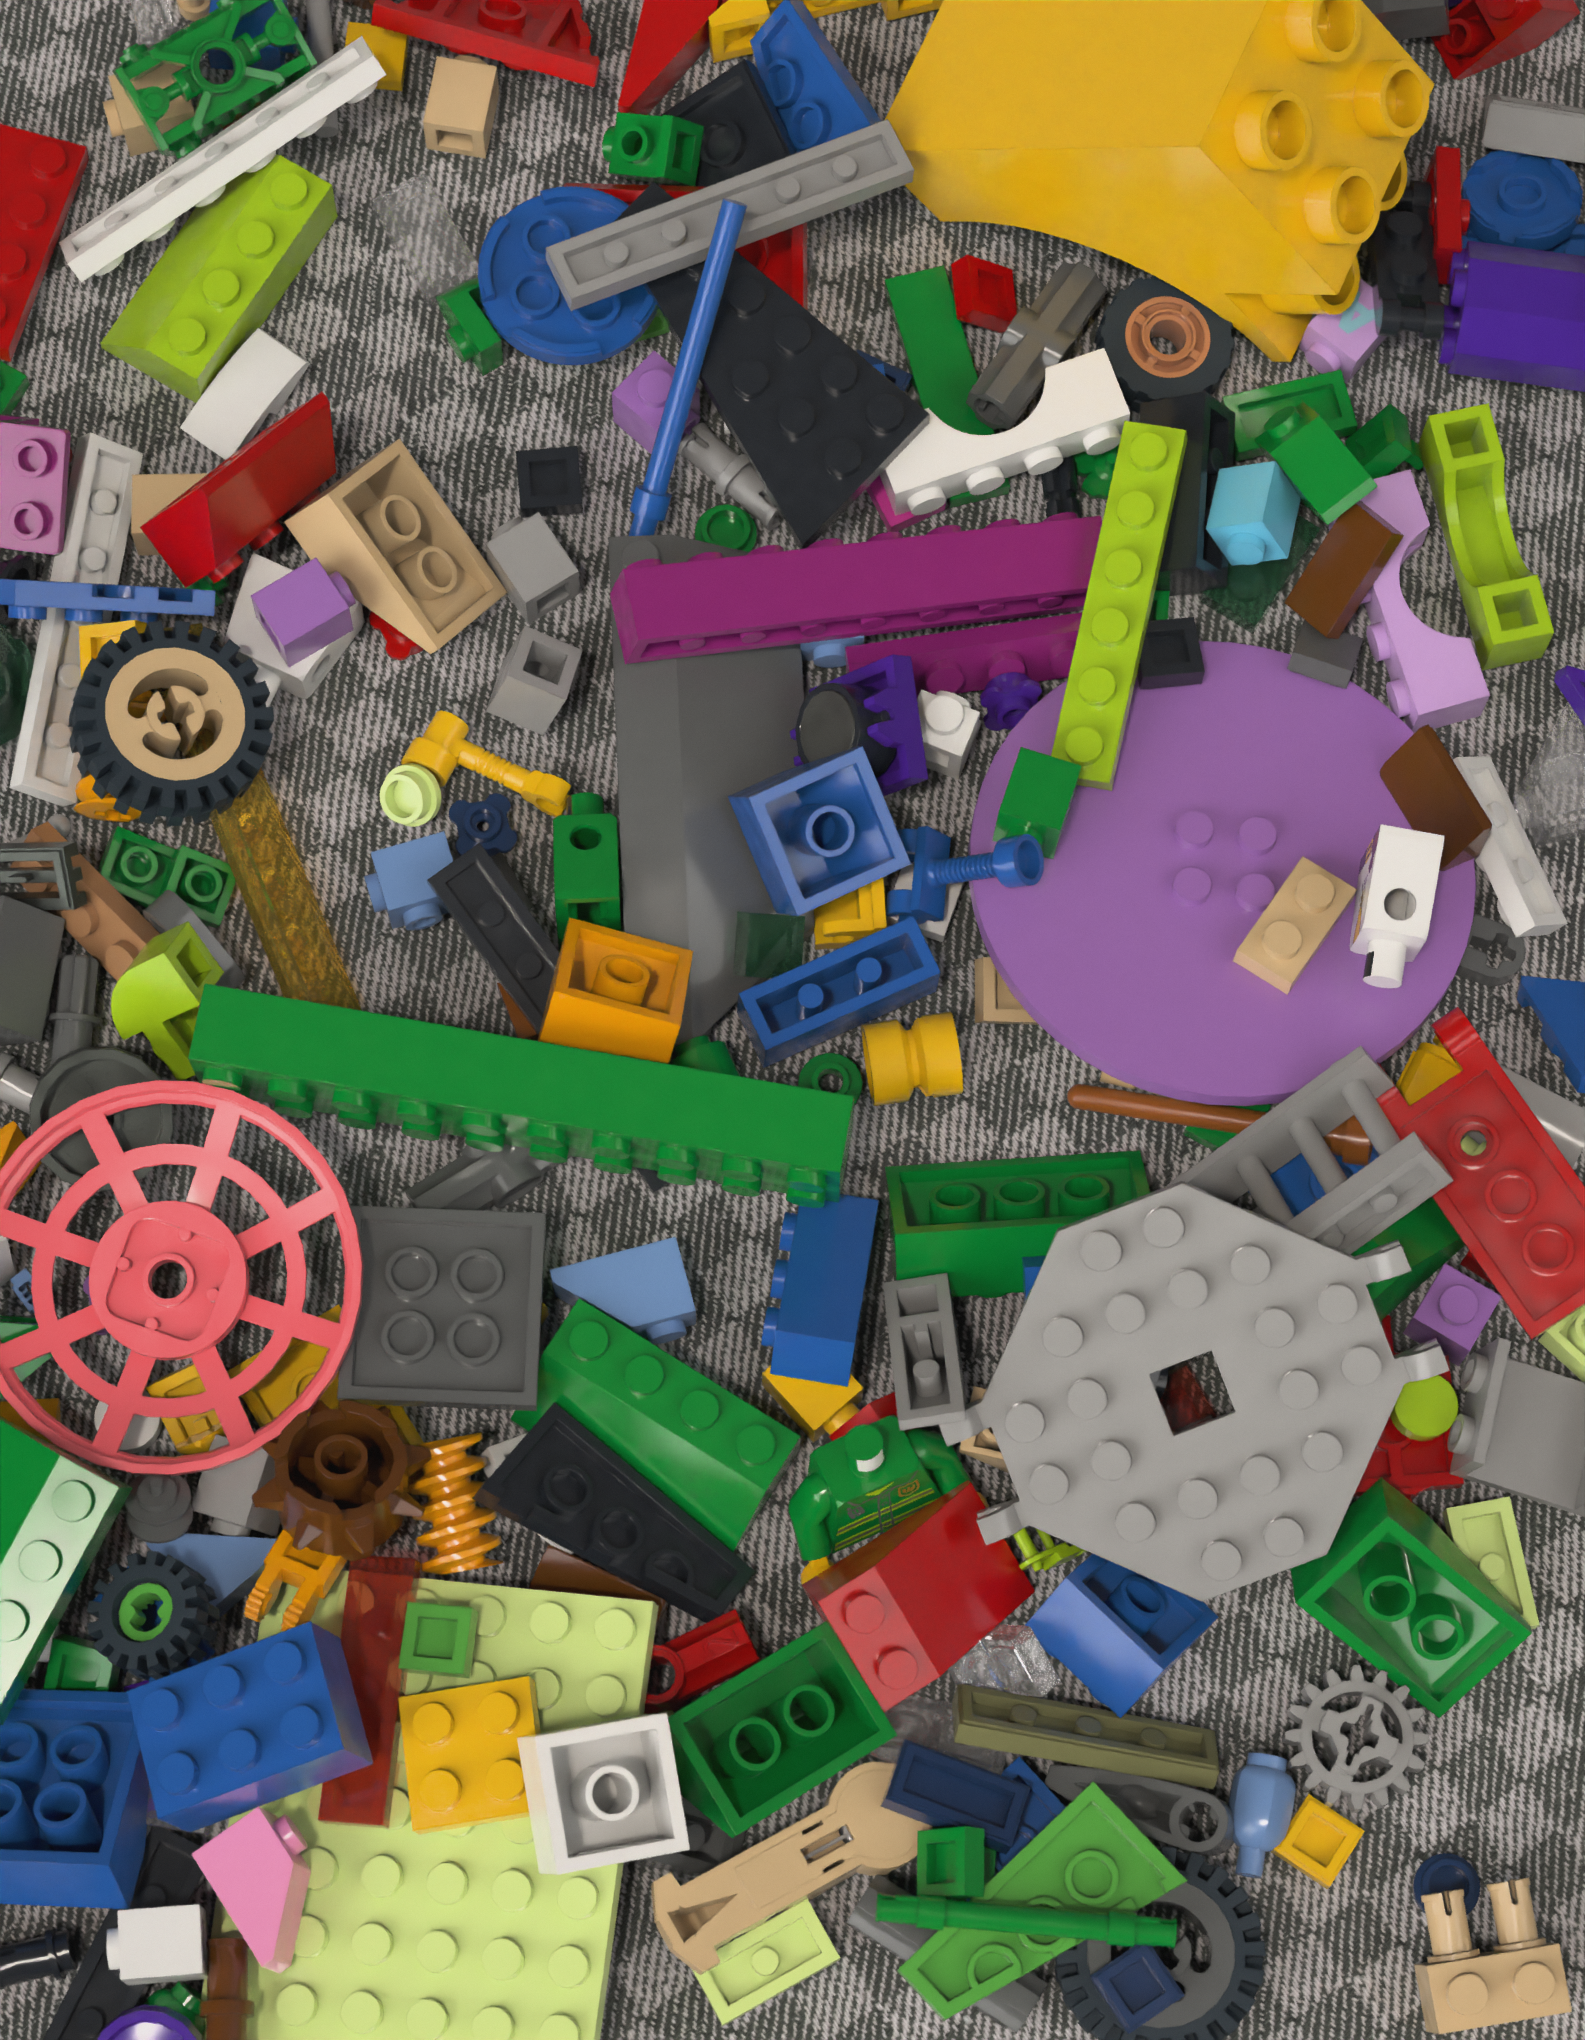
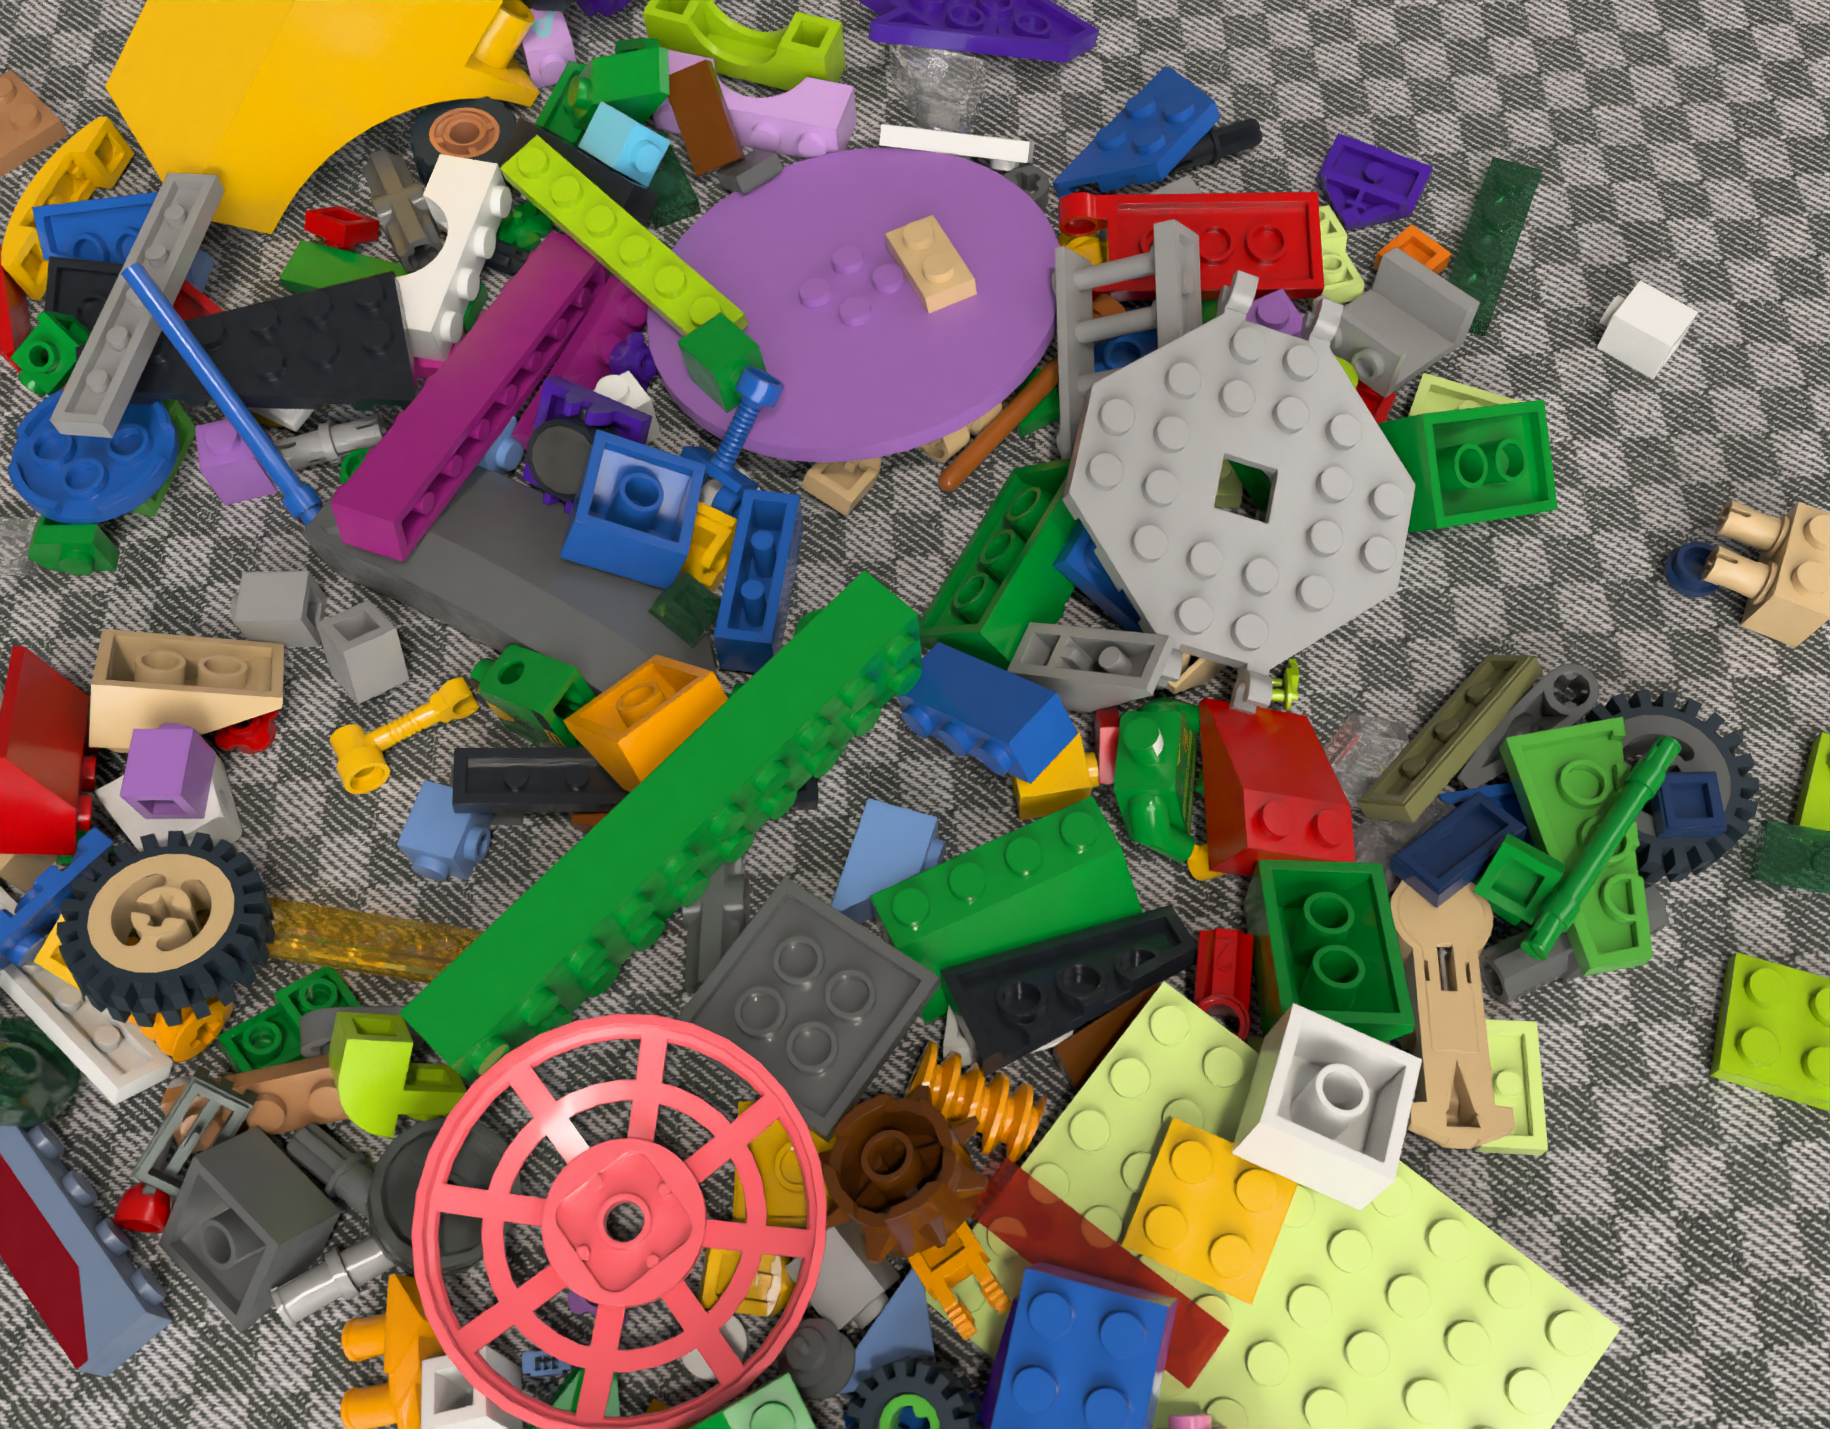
camera: 50 degrees left, 10 degrees down
(410, 795) = (377, 797): yellowish green plate -> none
(438, 1640) = (1092, 1178): bright green plate -> none
(494, 811) = (436, 747): dark blue plate -> none
(549, 481) = (223, 561): black plate -> none
(912, 1058) = (844, 551): yellow wheel -> none
(1118, 1630) = (1377, 668): blue slope -> none
(1170, 654) = (685, 239): black plate -> none
(1261, 1809) = (1565, 643): medium blue plant -> none
(1318, 1841) = (1611, 635): yellow tile -> none
(1384, 1749) = (1551, 563): light grey gear -> none
(1394, 901) = (960, 183): white torso -> none
(1436, 797) = (902, 146): reddish brown slope -> none

